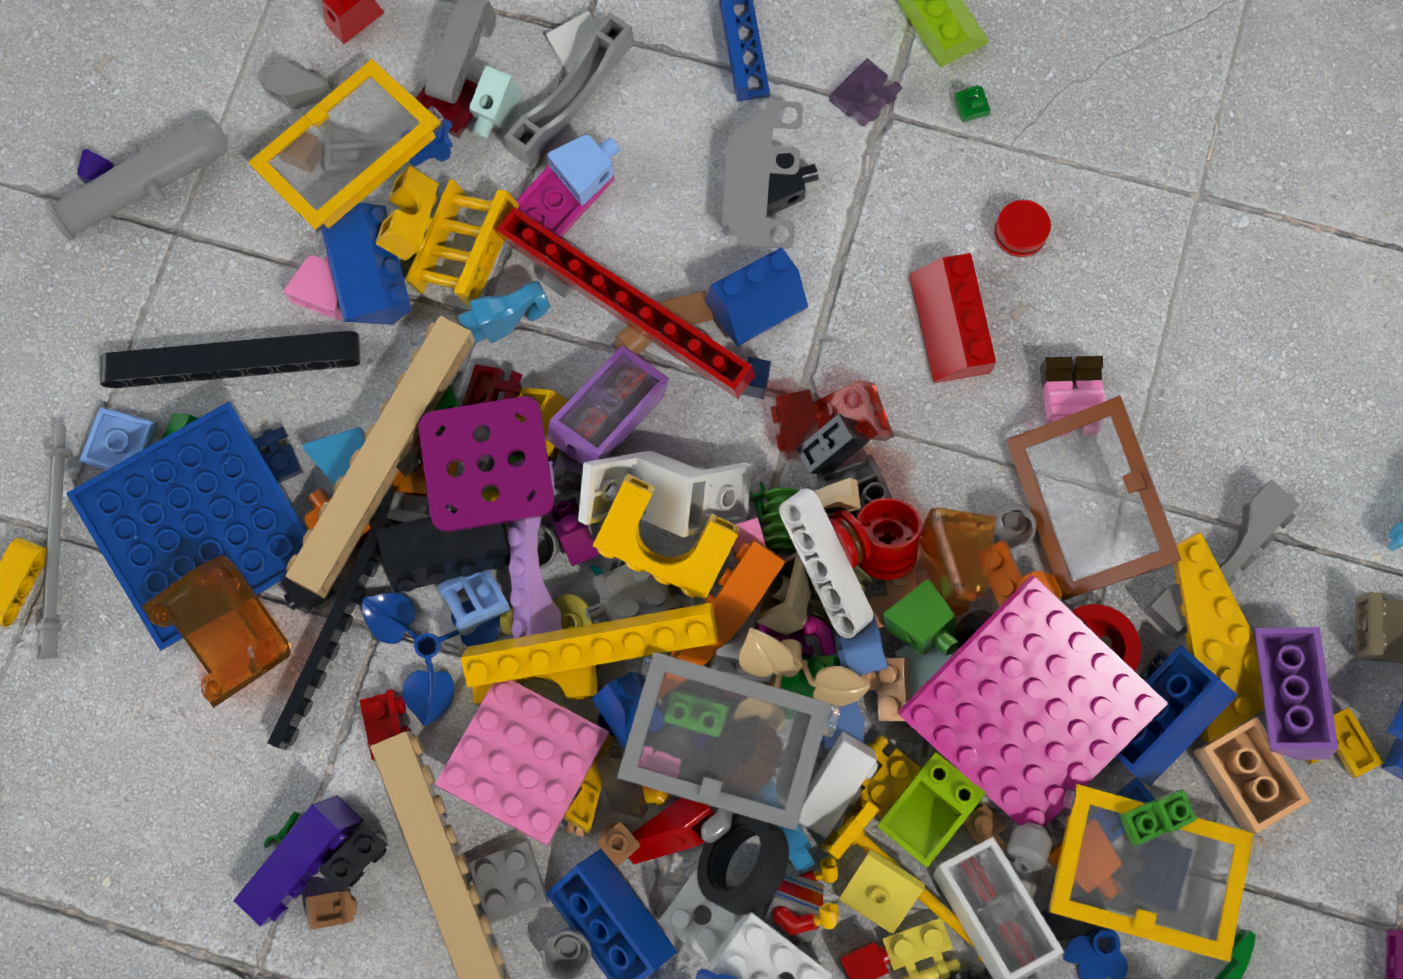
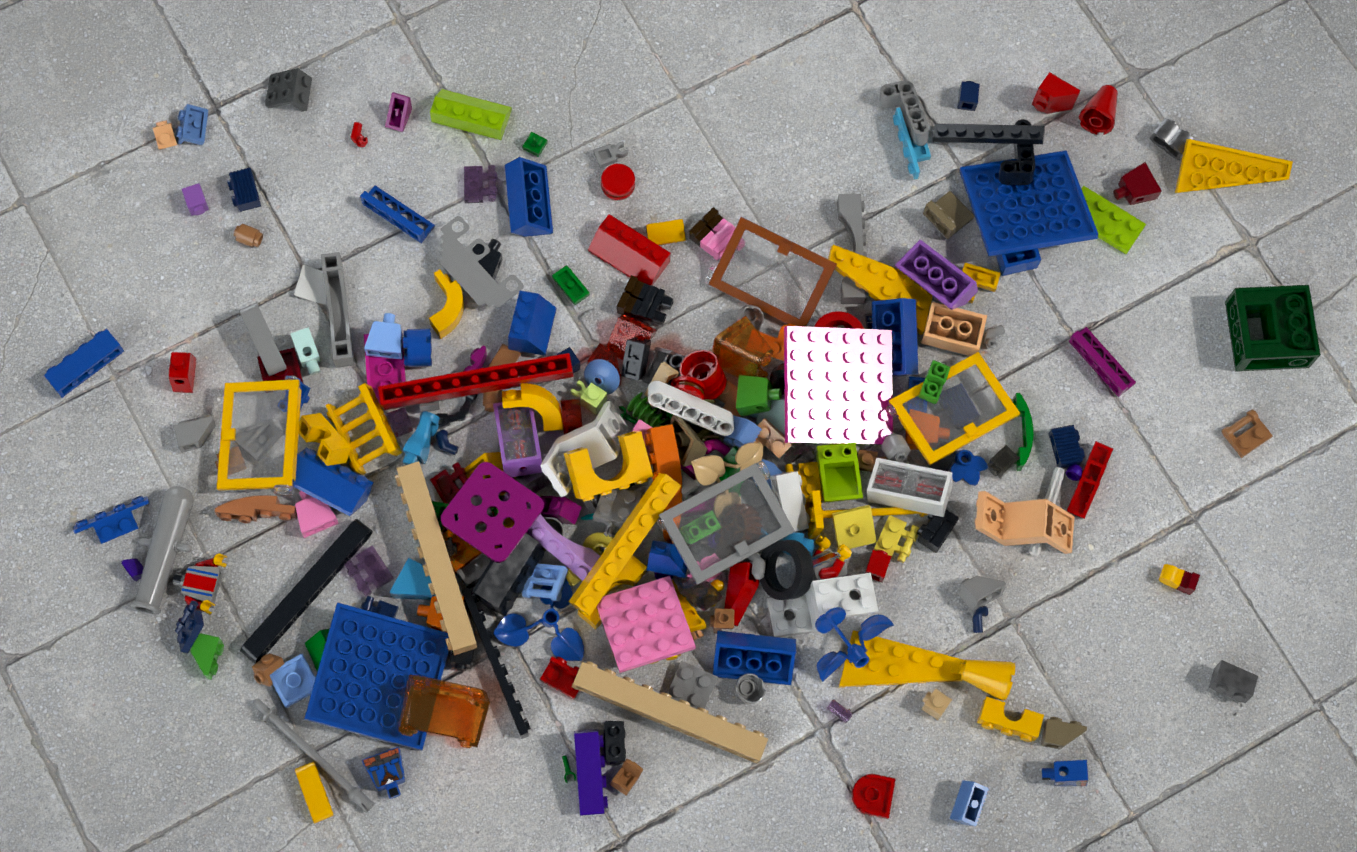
camera: 55 degrees left, 5 degrees down
(65, 327) = (206, 653): none -> bright green slope
(72, 280) = (189, 627): none -> dark blue plate
(101, 636) = (386, 771): none -> torso
(104, 399) = (265, 667): none -> medium nougat bracket
(128, 105) = (113, 523): none -> blue bracket
(136, 251) = (202, 582): none -> torso
(268, 220) = (248, 508): none -> nougat slope
(321, 402) = (373, 566): none -> clear purple plate
(508, 271) = (400, 422): none -> clear purple brick
(532, 338) = (443, 443): none -> dark blue arm
(580, 326) = (459, 416): none -> black piece
(608, 208) = (417, 347): none -> blue brick
(663, 282) = (477, 358): none -> magenta slope
(672, 389) = (538, 399): none -> yellow arch
(692, 203) = (450, 315): none -> yellow arch
(695, 441) = (571, 415): none -> clear red slope
(739, 440) = (591, 397): none -> yellowish green brick
(773, 430) = (605, 372): none -> medium blue dish
(848, 295) = (570, 285): none -> green plate
(902, 155) = (528, 198): none -> blue slope
(910, 390) = (644, 302): none -> black hips
(1018, 335) = (666, 232): none -> yellow slope
(1041, 186) = (607, 155): none -> light grey plate
(1291, 826) = (990, 336): none -> light grey arm

